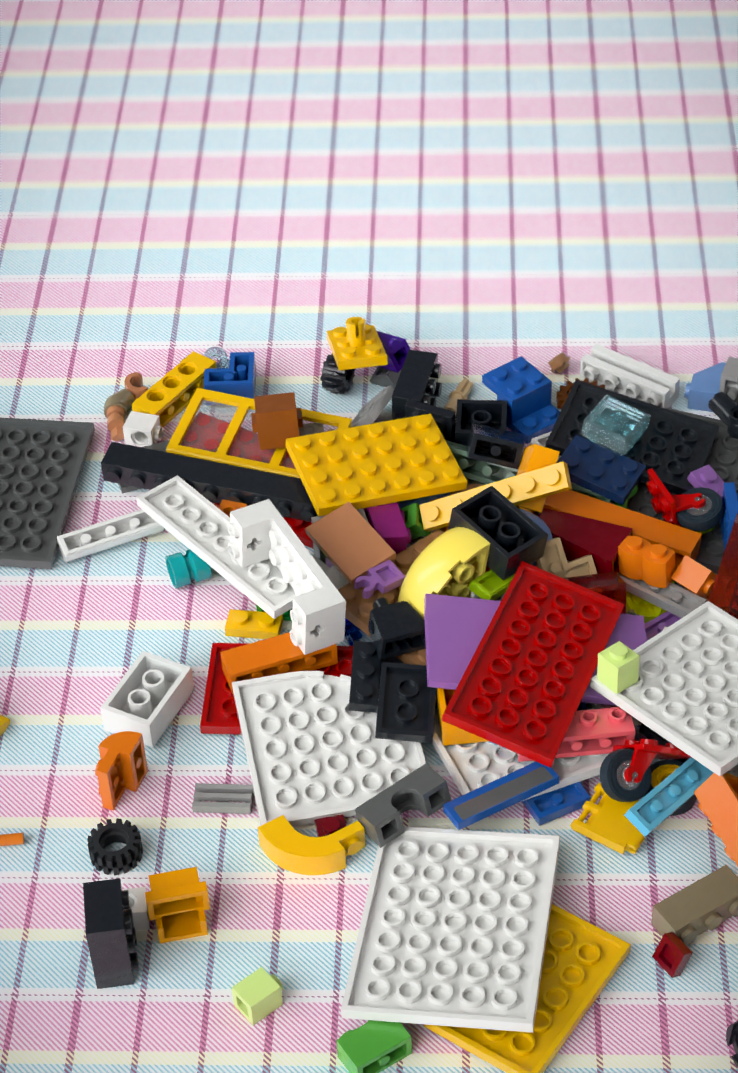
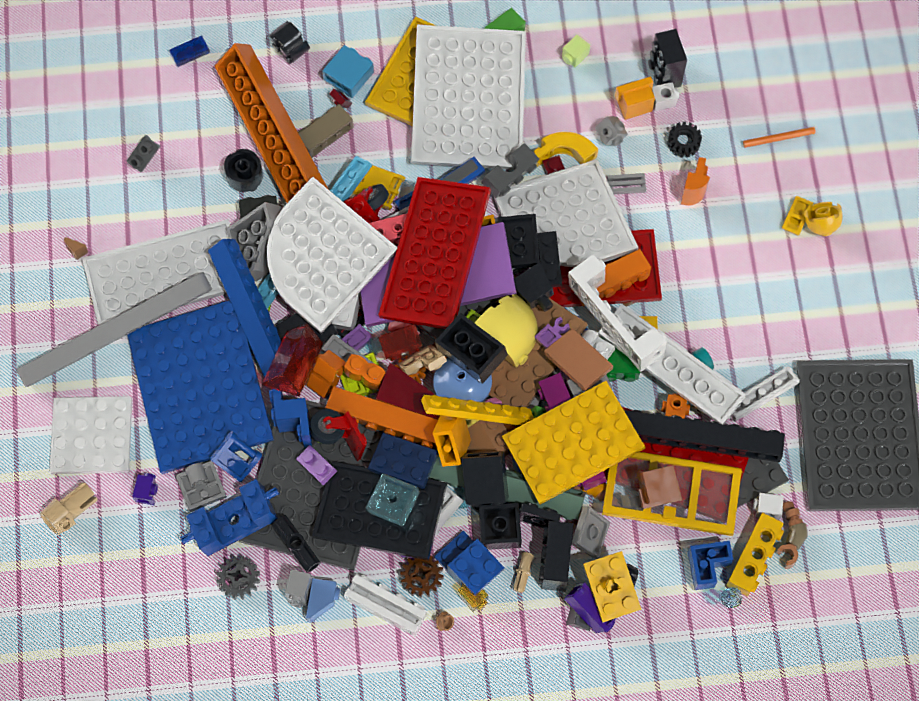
camera: 170 degrees right, 25 degrees up
(148, 697) = (693, 243): white brick -> none
(229, 860) = (611, 131): none -> light grey brick
(618, 667) = (380, 243): yellowish green brick -> none
(658, 992) = (348, 71): none -> dark azure brick

